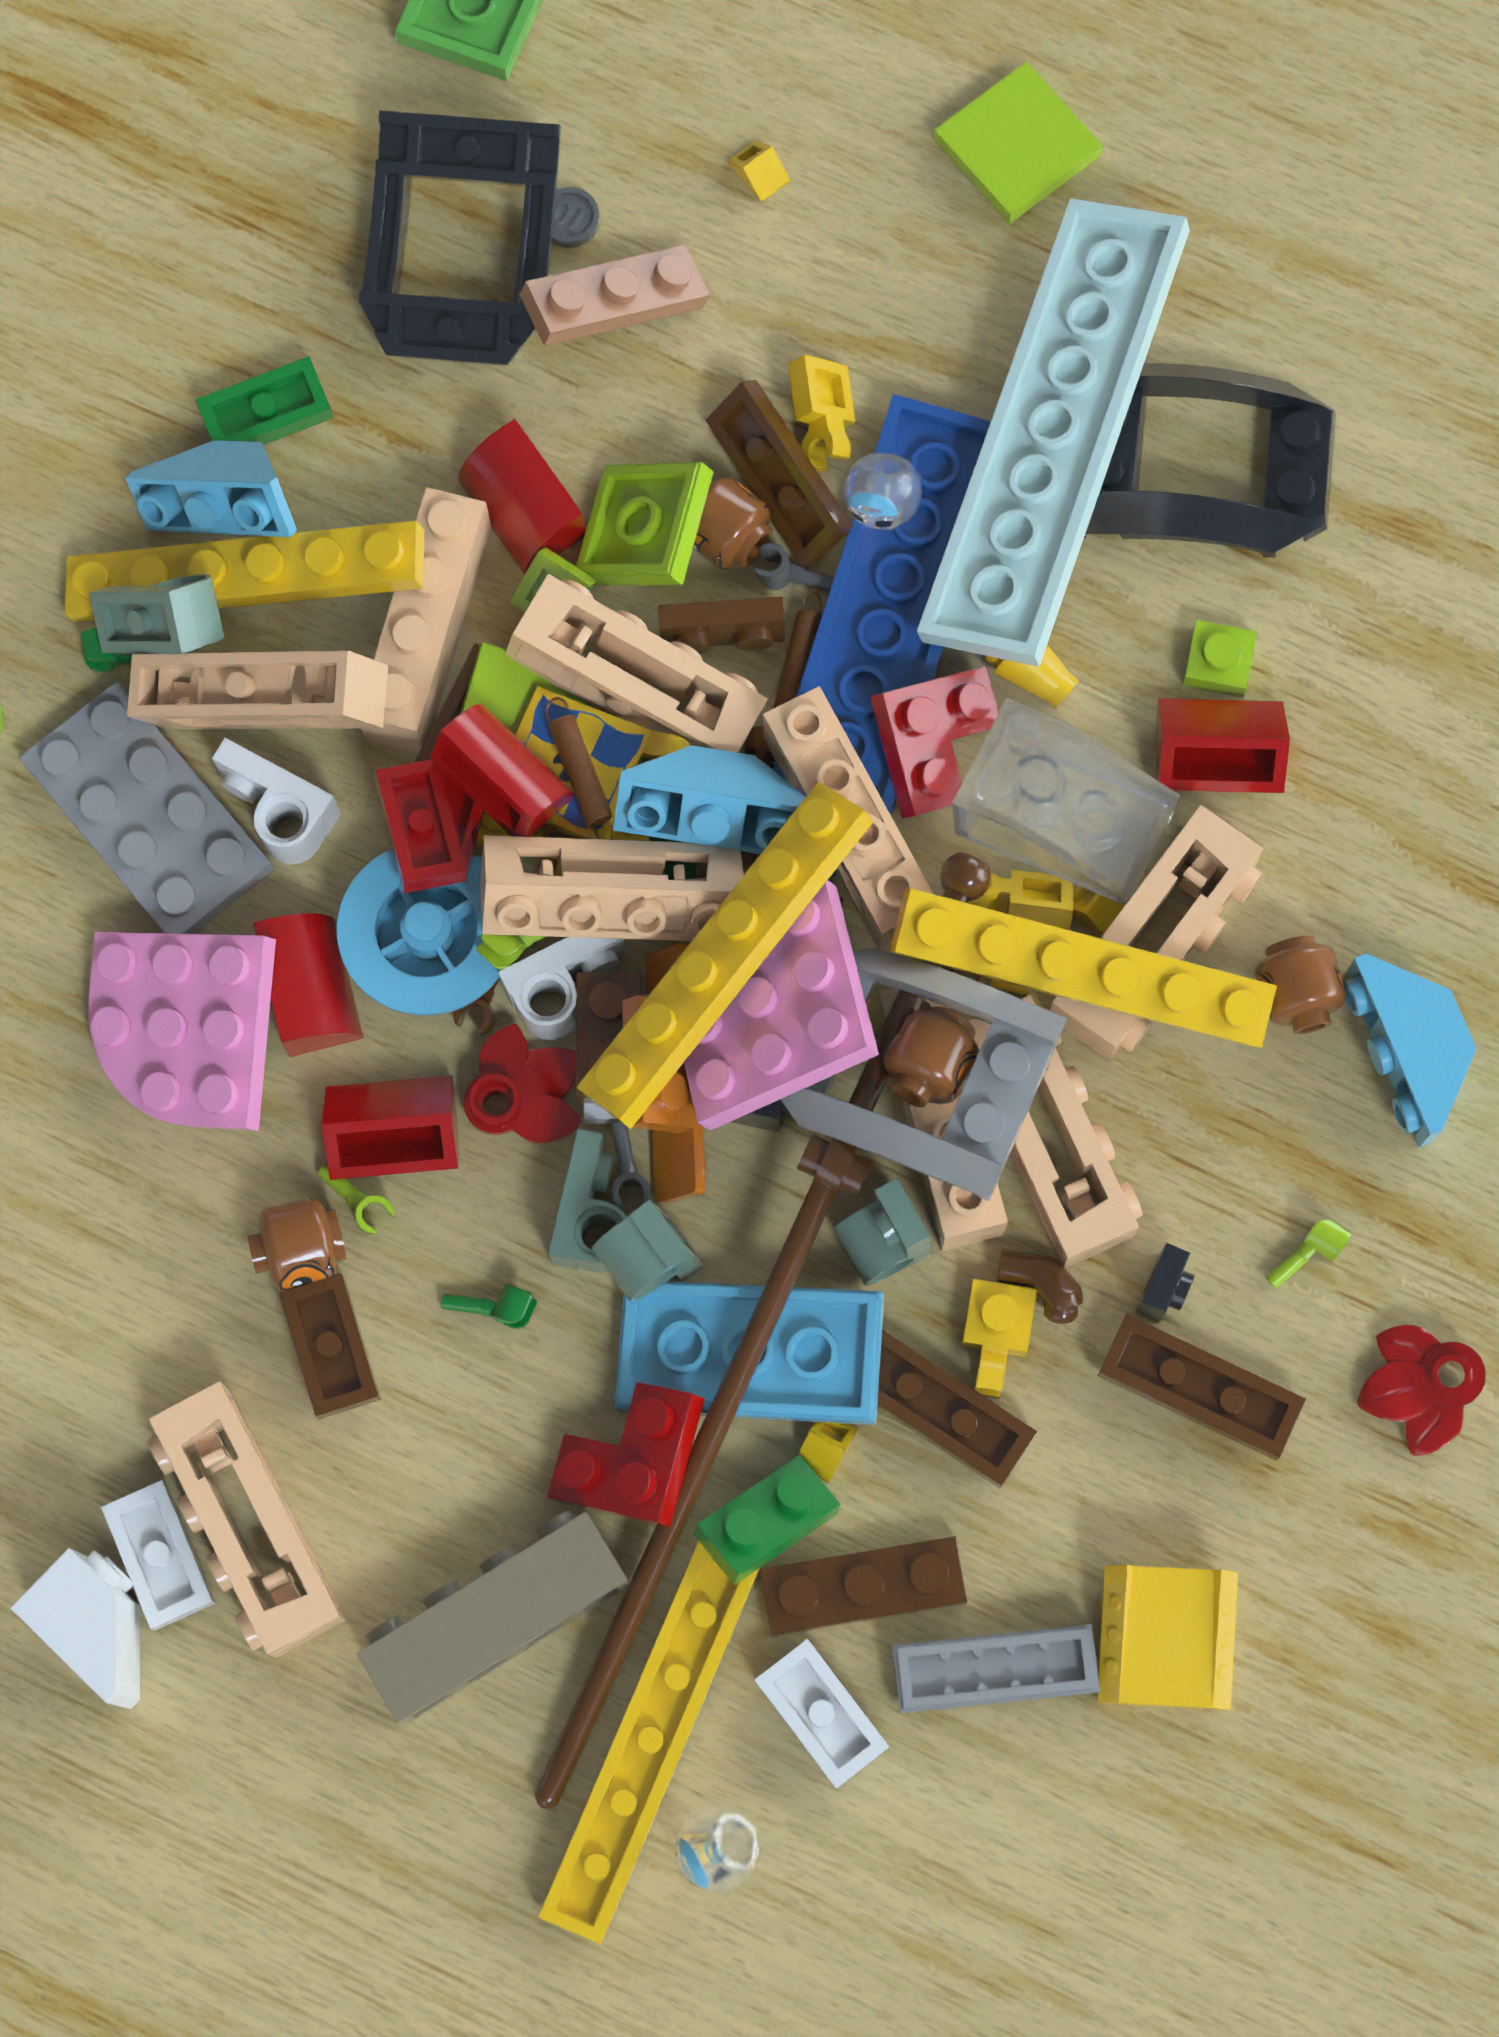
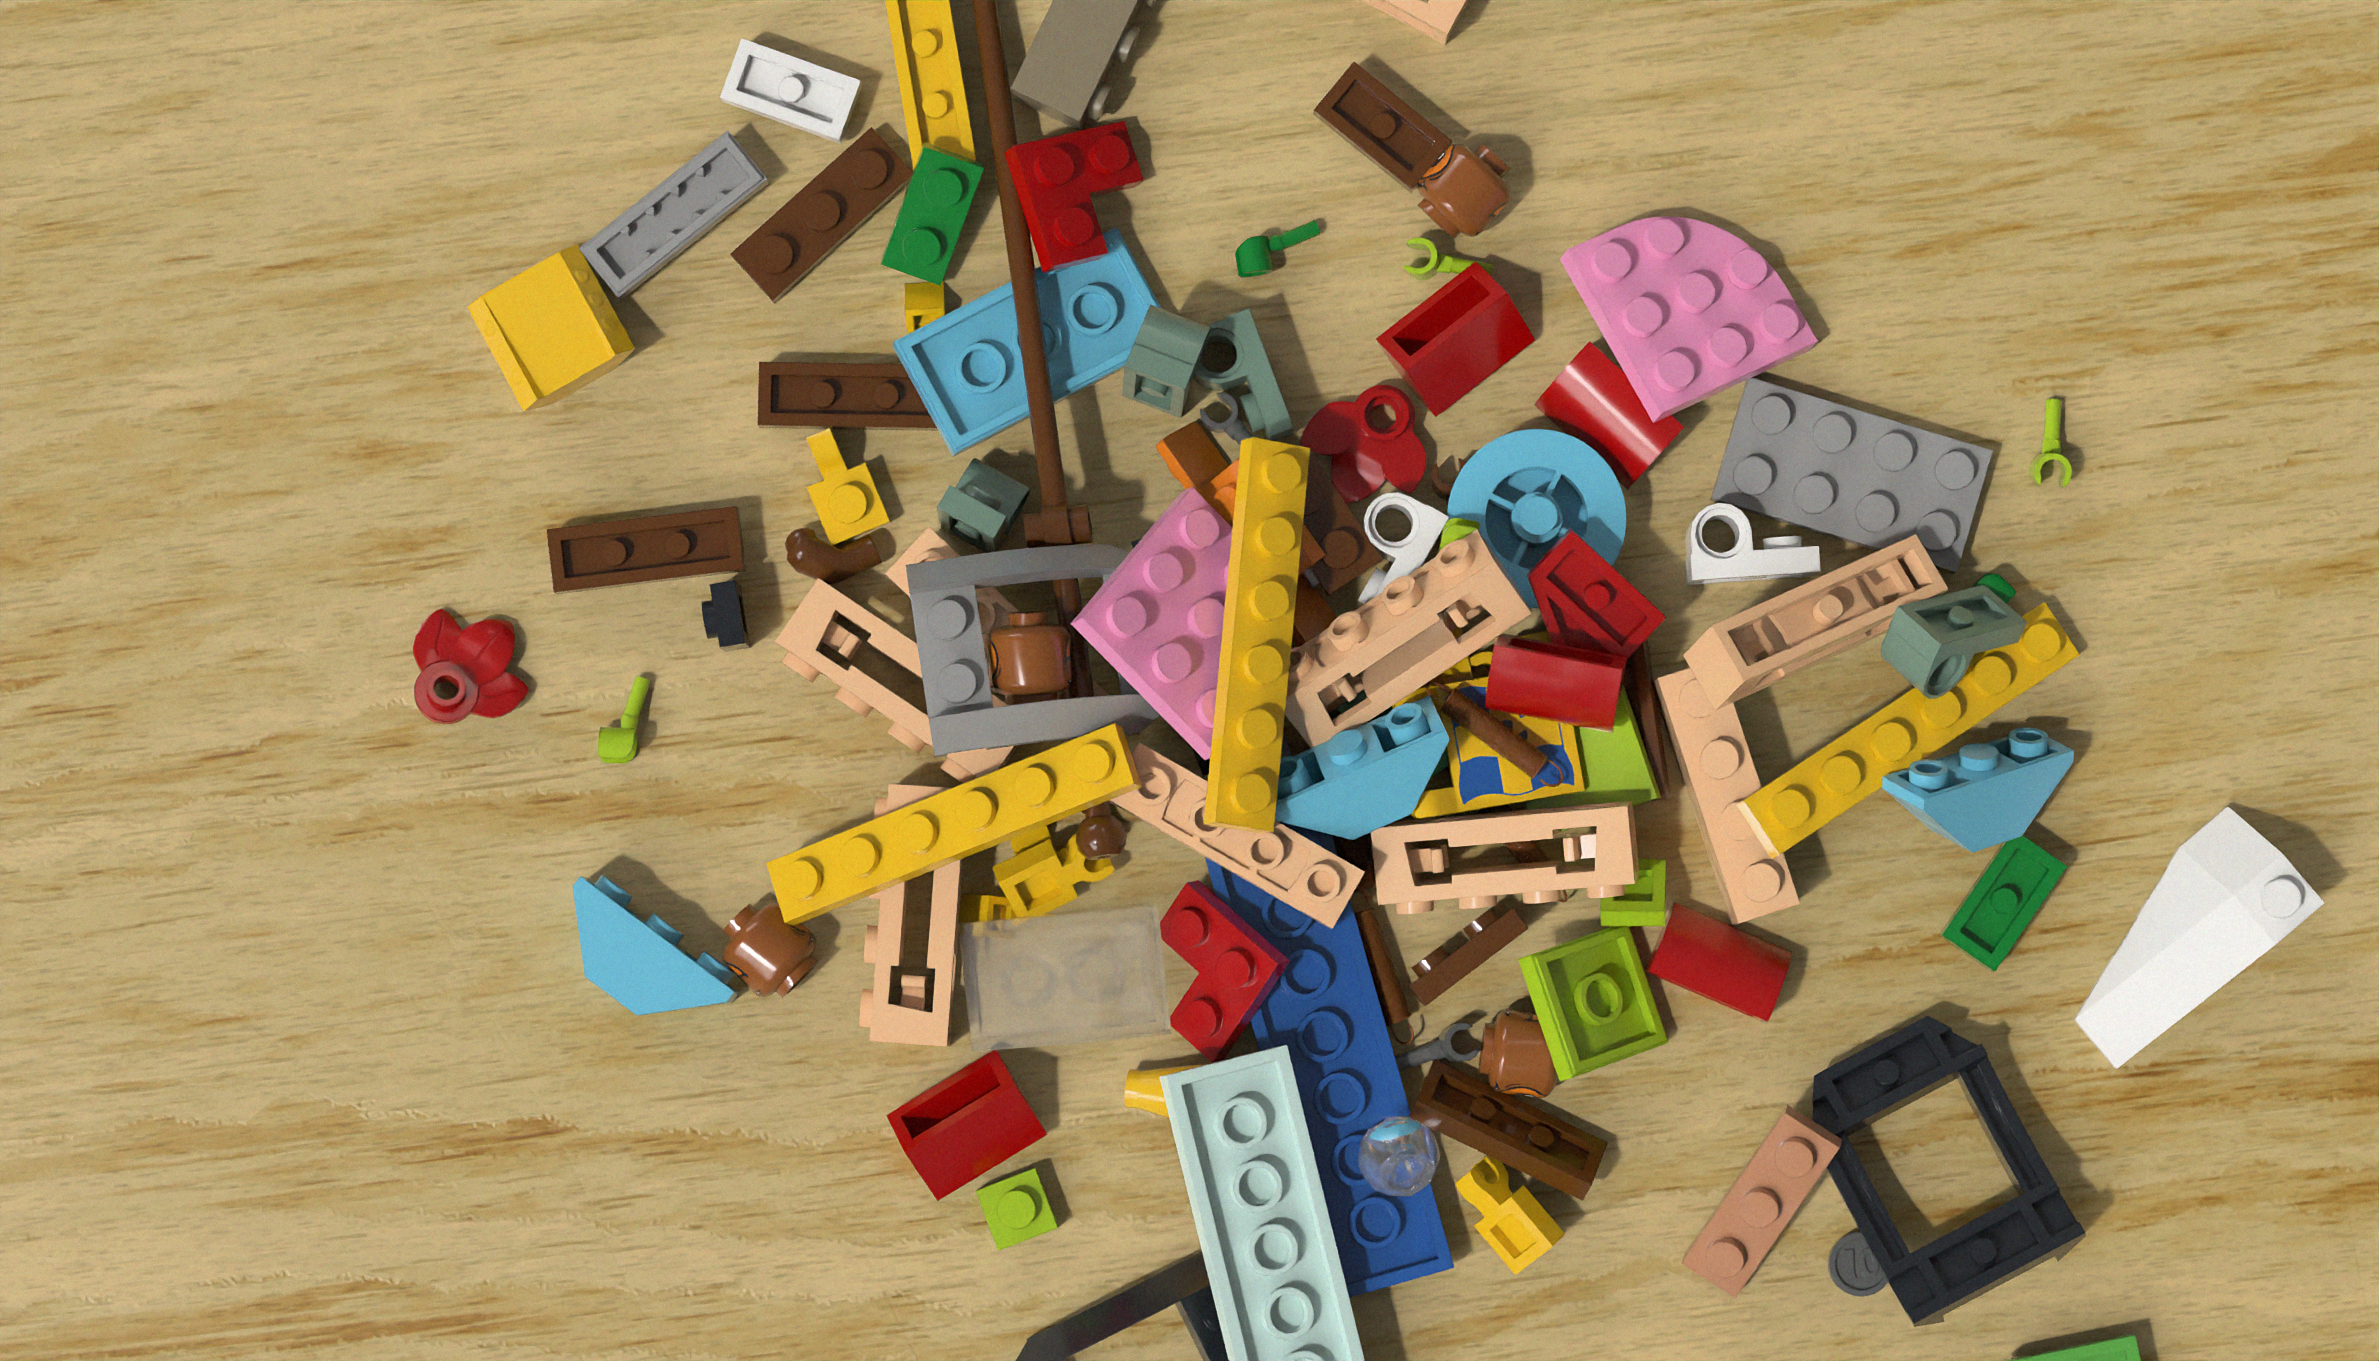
camera: 150 degrees right, 10 degrees up
(119, 292) = (2204, 923): none -> white wedge

